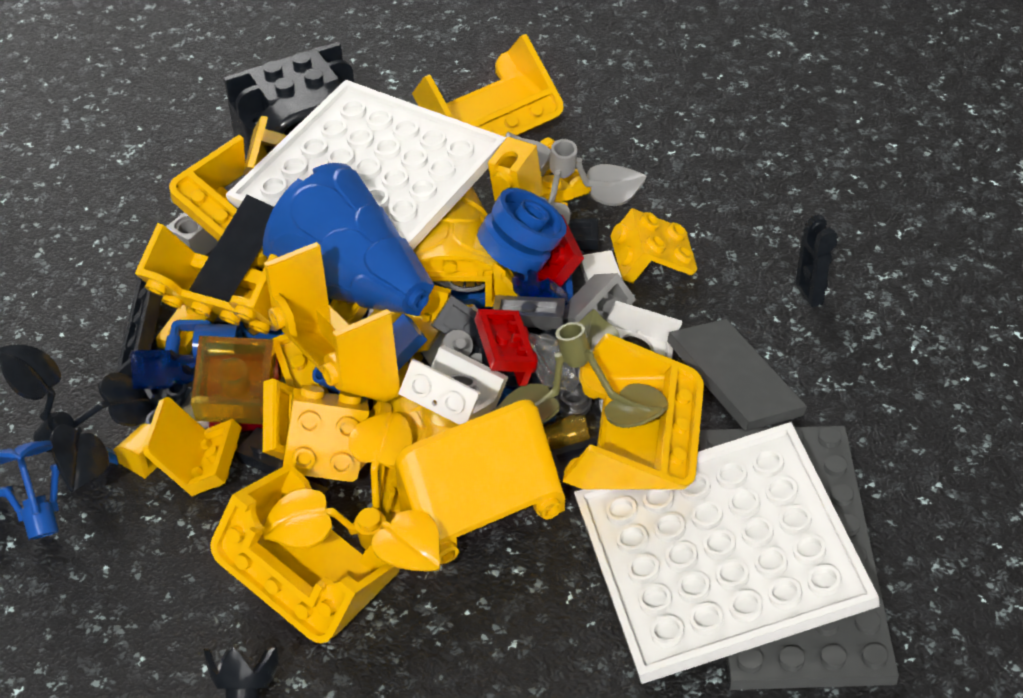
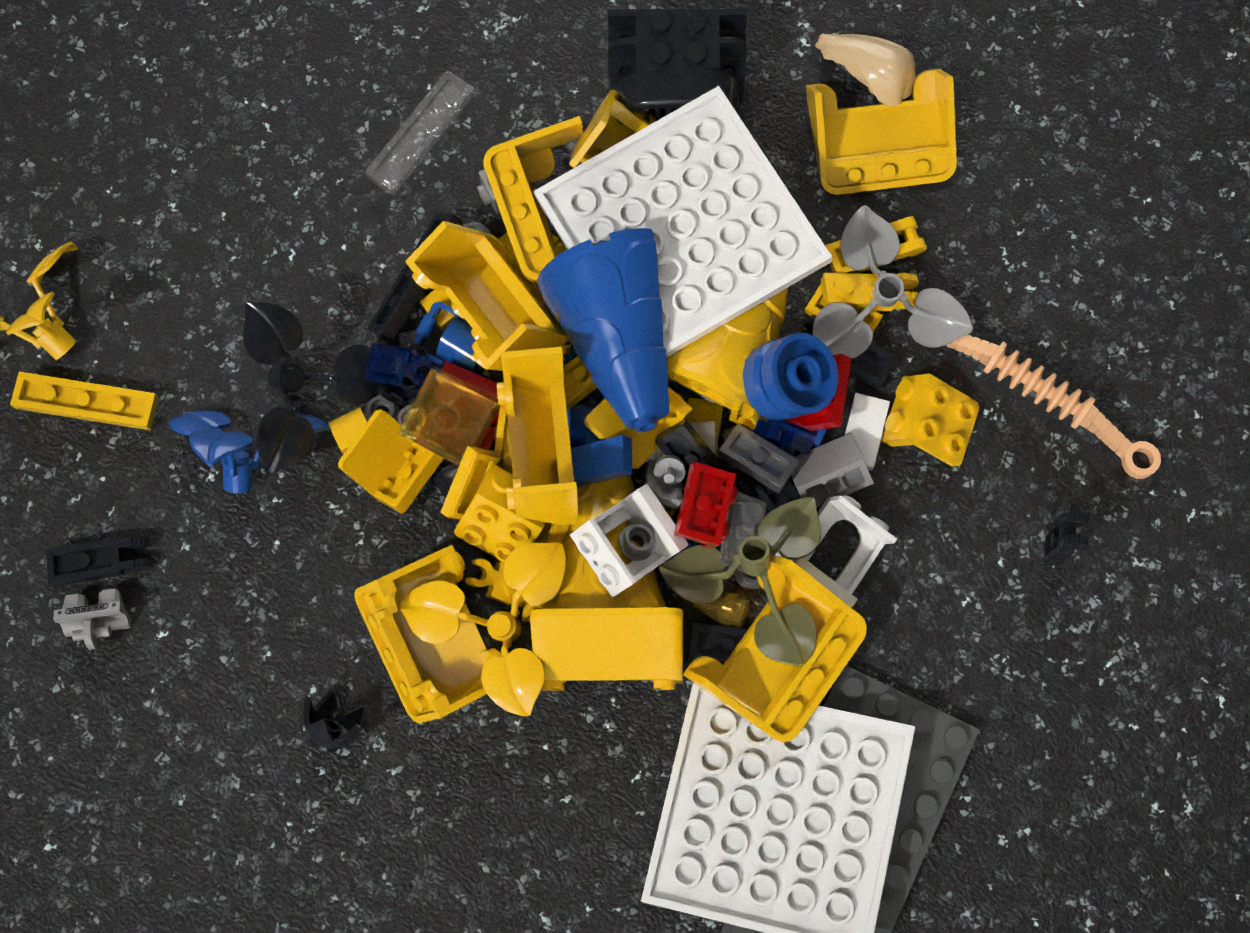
camera: 30 degrees right, 30 degrees up
(94, 233) = (420, 132): none -> clear plate
(234, 251) = (516, 262): black sticker -> none
(348, 493) = (495, 580): none -> yellow plate
(463, 59) = (875, 62): none -> tan hair
(515, 166) = (826, 294): yellow brick -> none
(736, 374) = (916, 618): dark grey tile -> none
(773, 194) = (1084, 413): none -> light nougat piece

